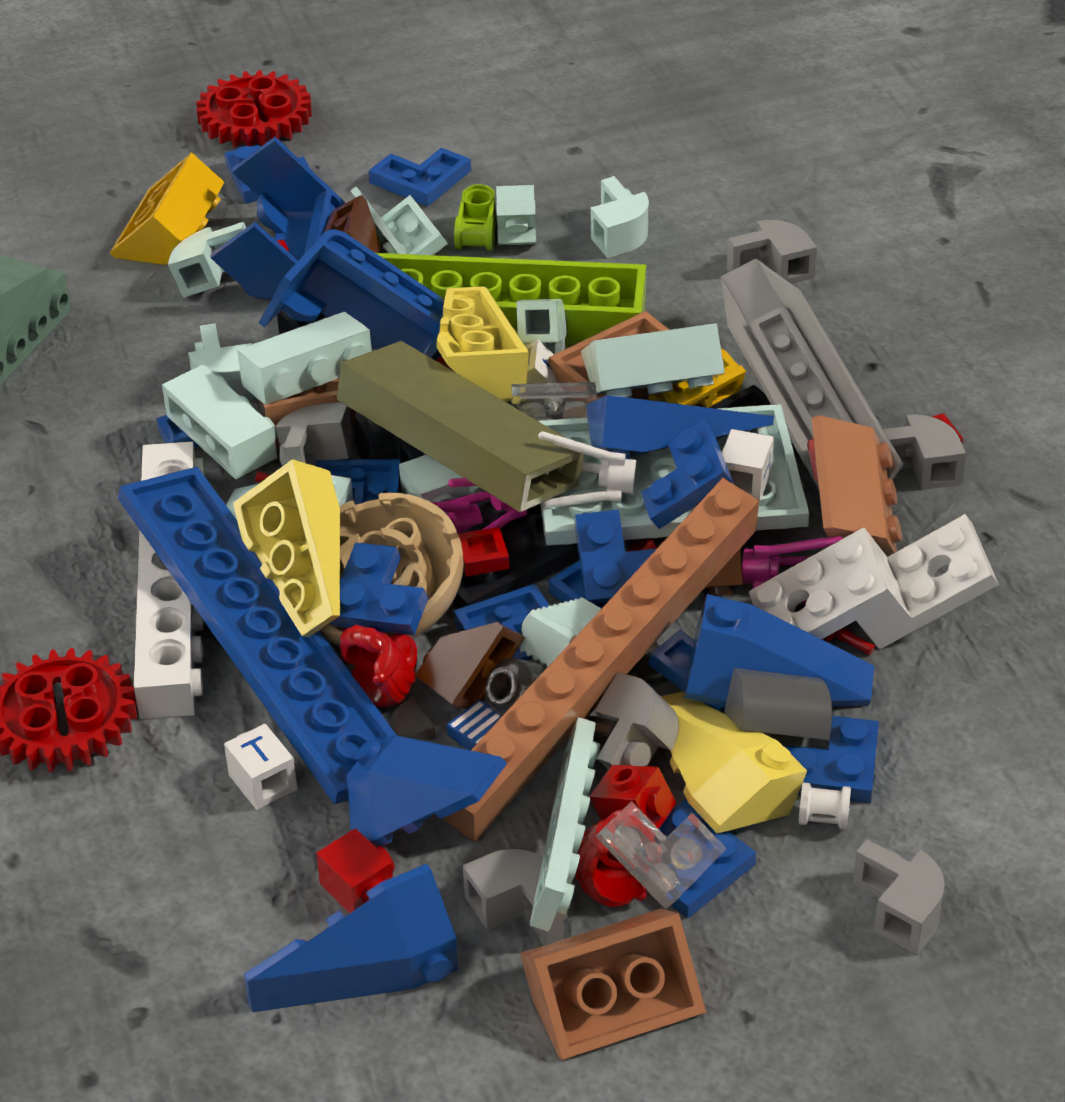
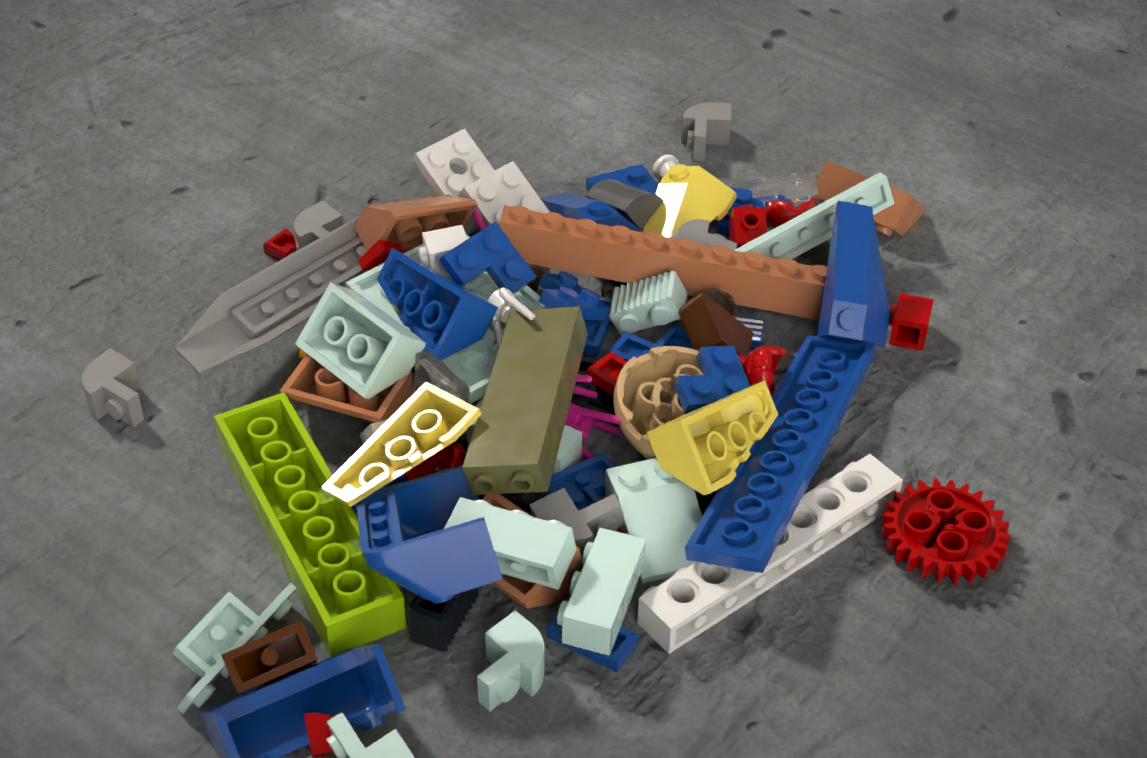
camera: 125 degrees left, 0 degrees up
(260, 766) = (883, 402): white brick -> none
(379, 948) = (963, 289): blue wedge -> none
(422, 181) = (118, 676): blue plate -> none
(476, 218) = (170, 598): lime piece -> none
(516, 215) = (157, 569): light aqua brick -> none
(542, 321) = (340, 435): light aqua brick -> none
(620, 220) = (113, 494): light aqua brick -> none

